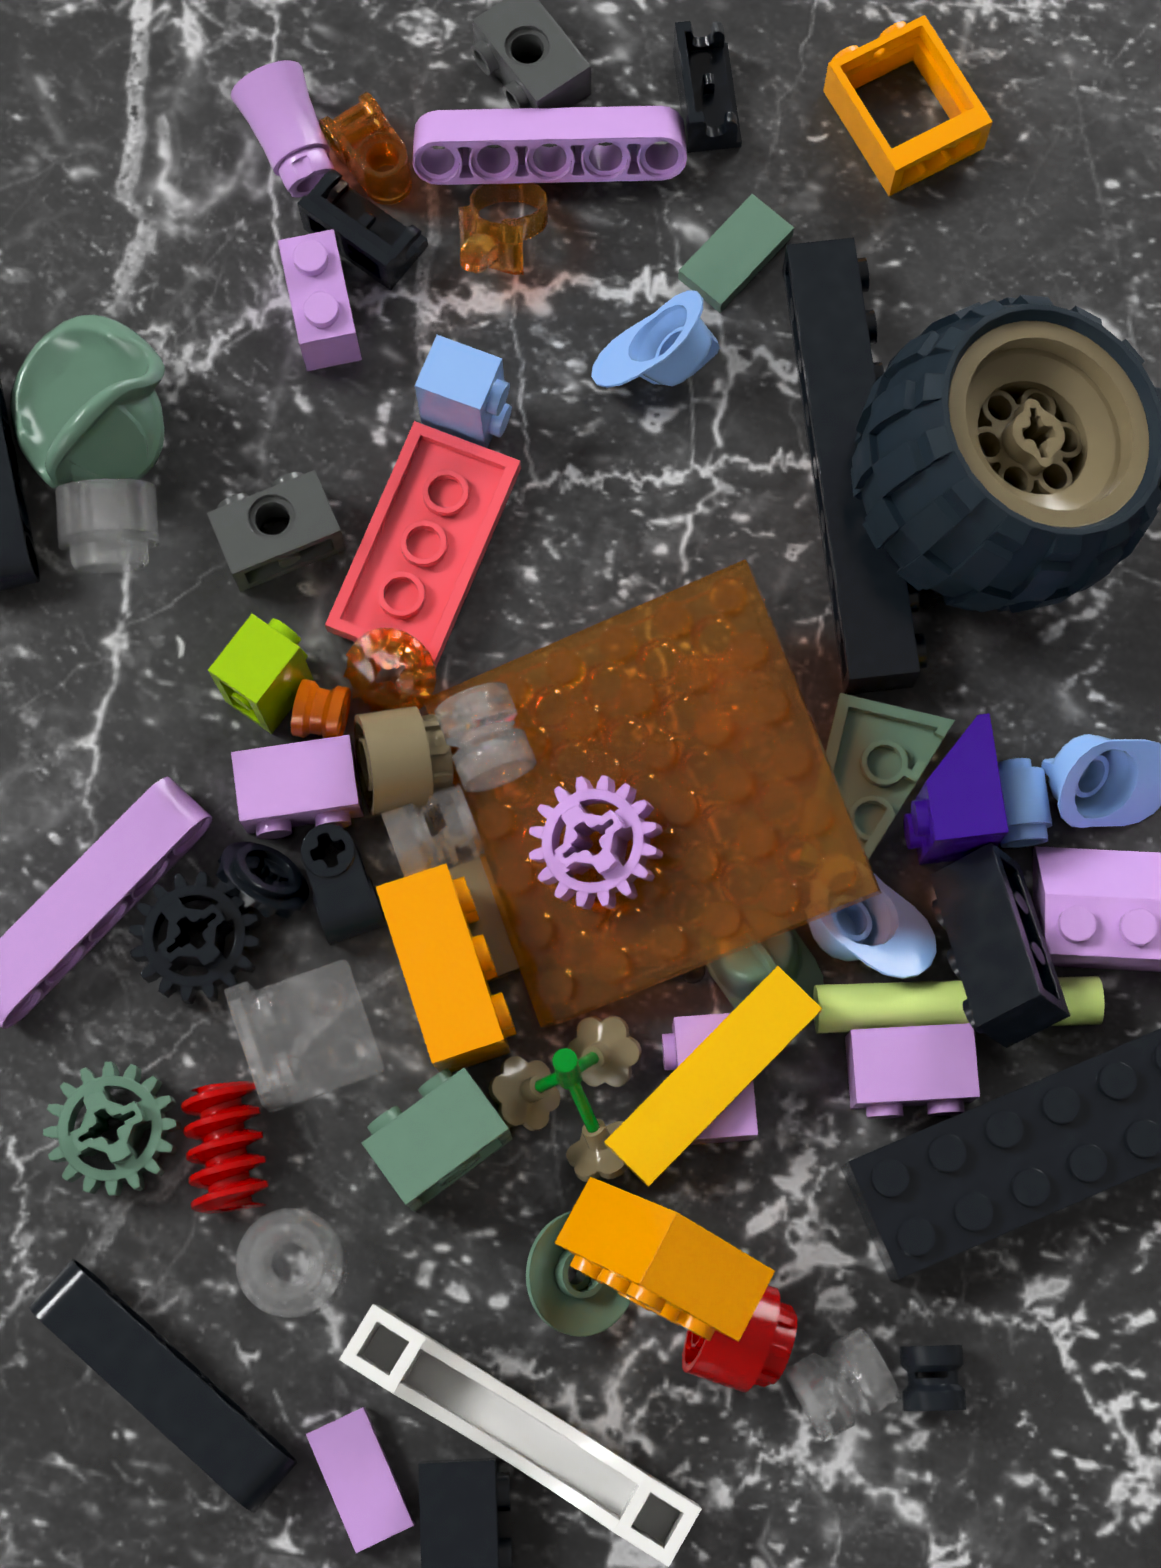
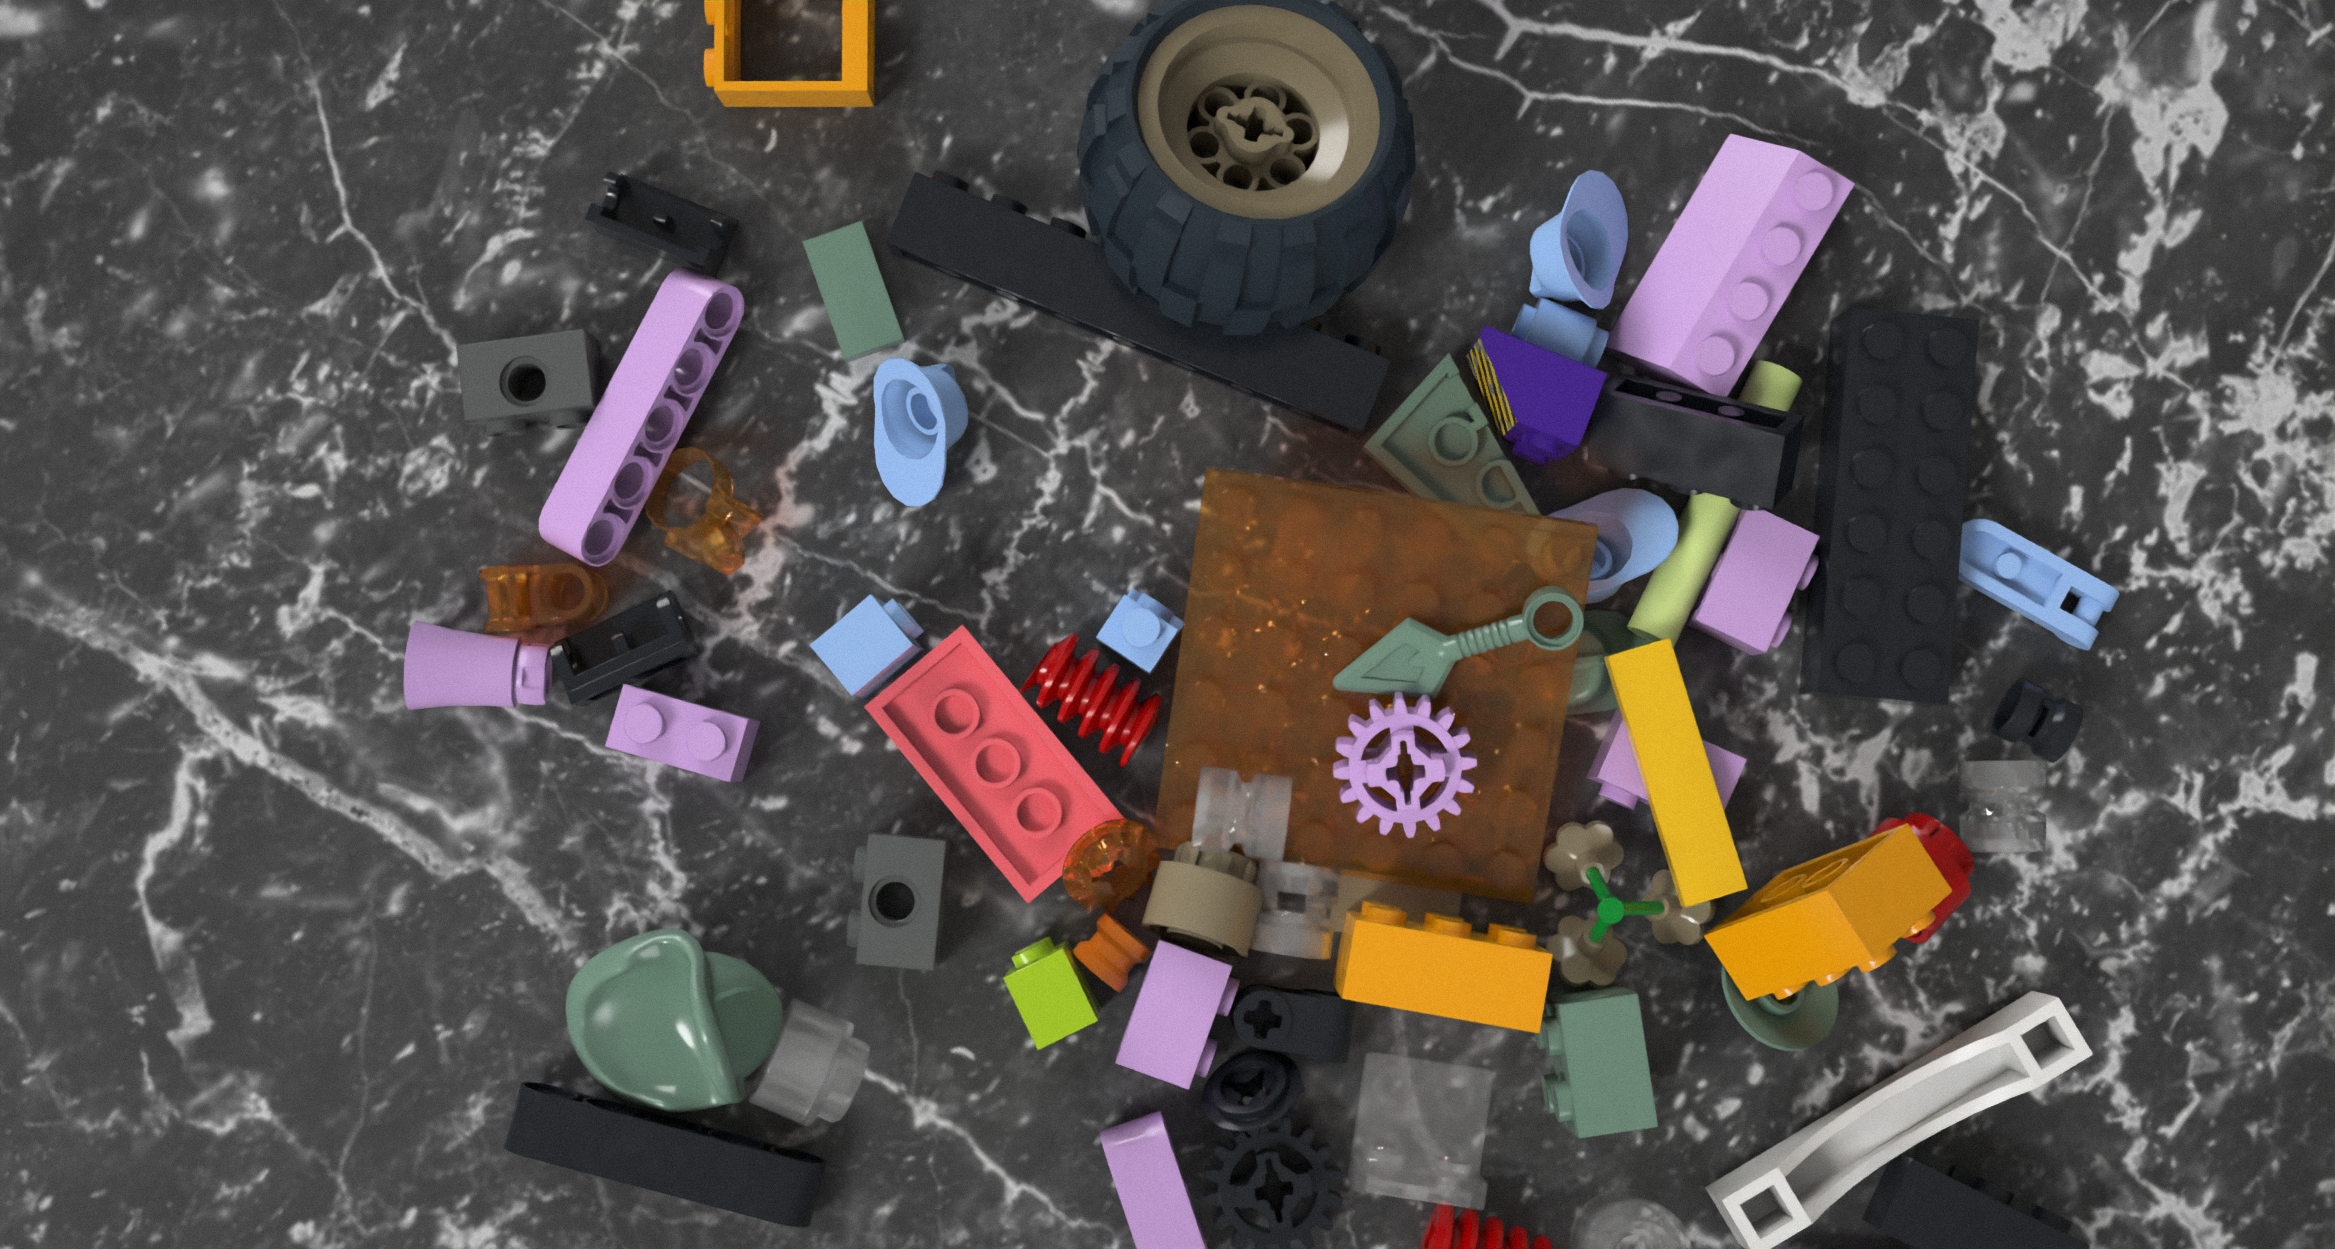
camera: 65 degrees left, 10 degrees up
(515, 590) = (1094, 697): none -> red piece
(588, 594) = (1140, 630): none -> light blue brick
(689, 808) = (1419, 658): none -> sand green piece
(1049, 1307) = (2032, 581): none -> light blue plate

